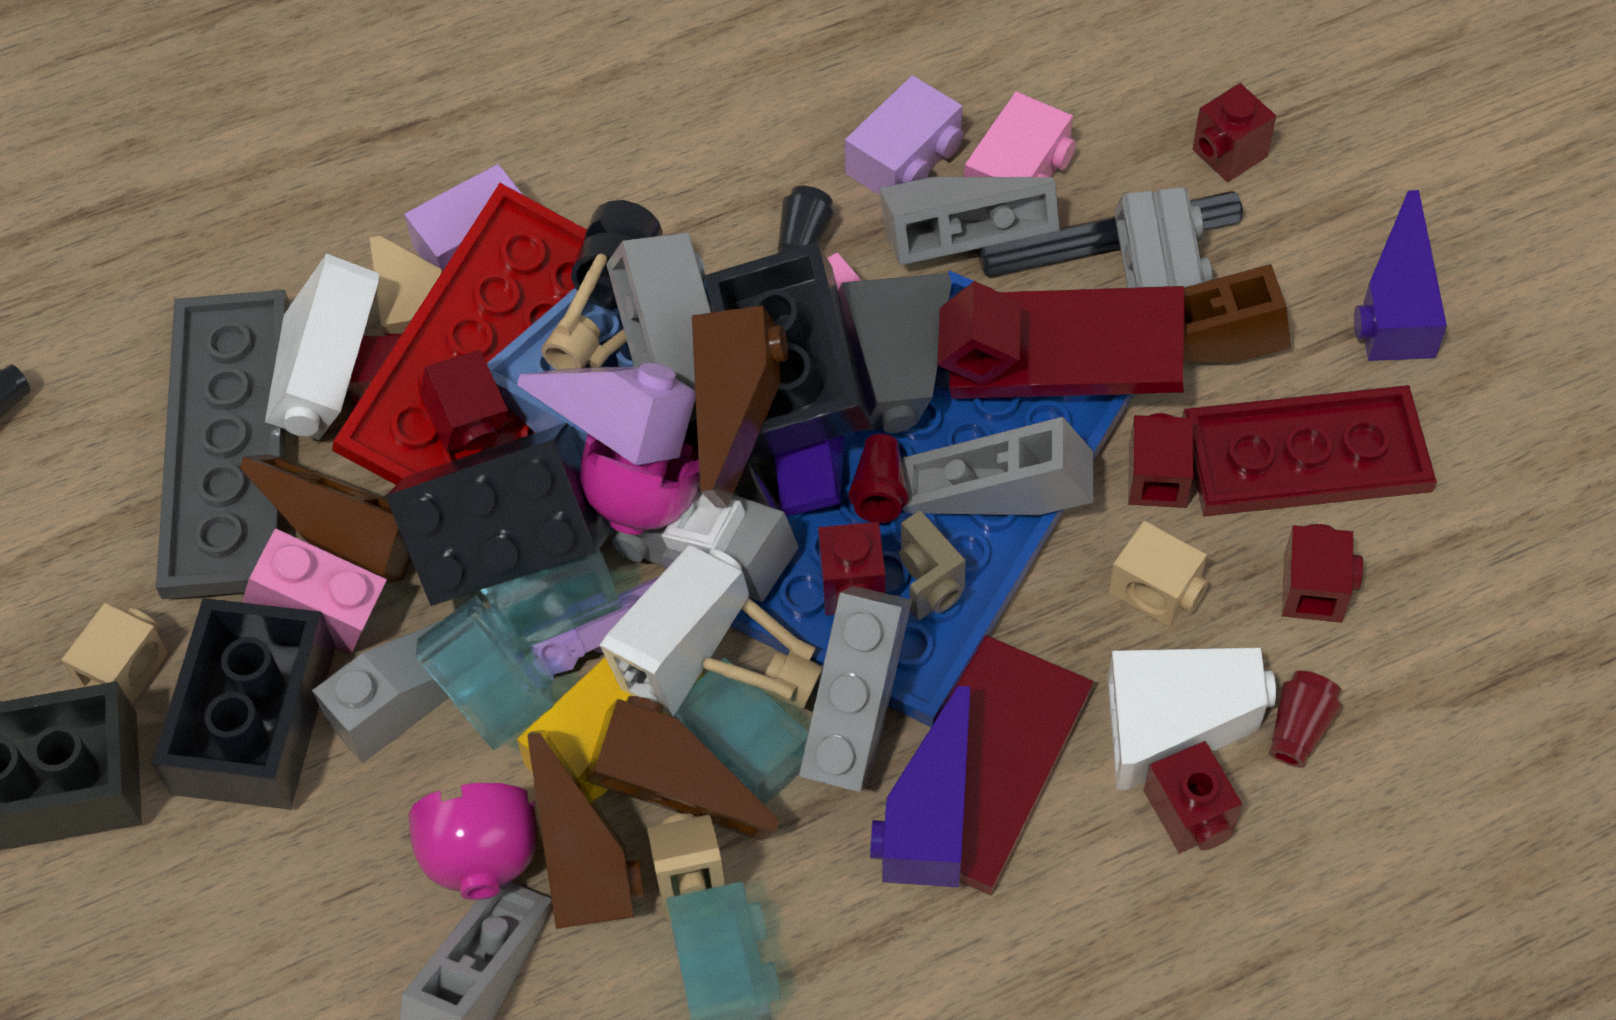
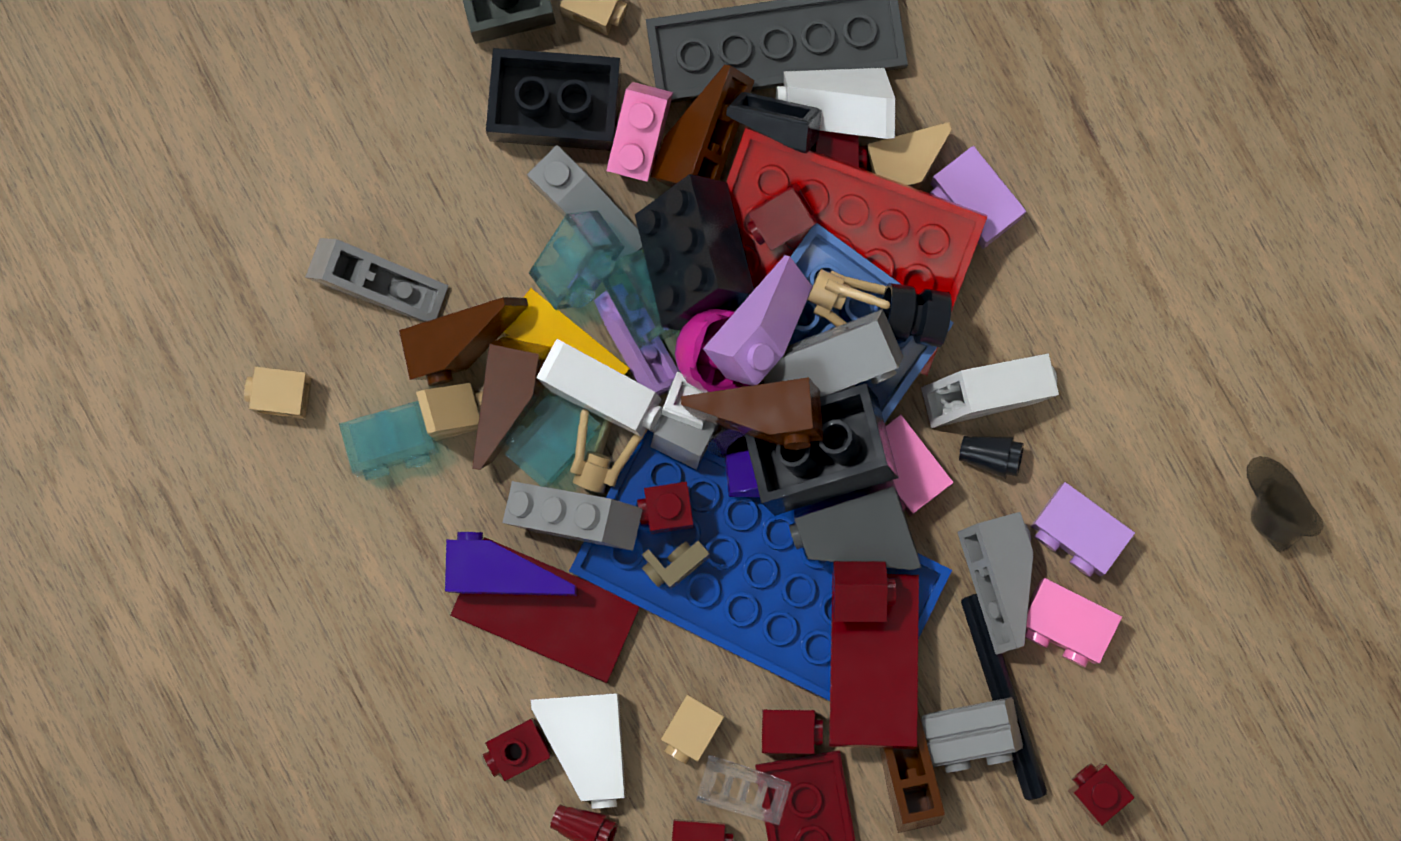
camera: 90 degrees right, 25 degrees up
(333, 394) = (781, 120): none -> black slope
(475, 839) = (454, 269): dark pink cylinder -> none
(719, 207) = (990, 390): none -> white slope
(879, 481) = (749, 524): dark red cone -> none
(1004, 473) = (754, 610): light grey slope -> none
(1229, 552) = (723, 800): none -> clear slope

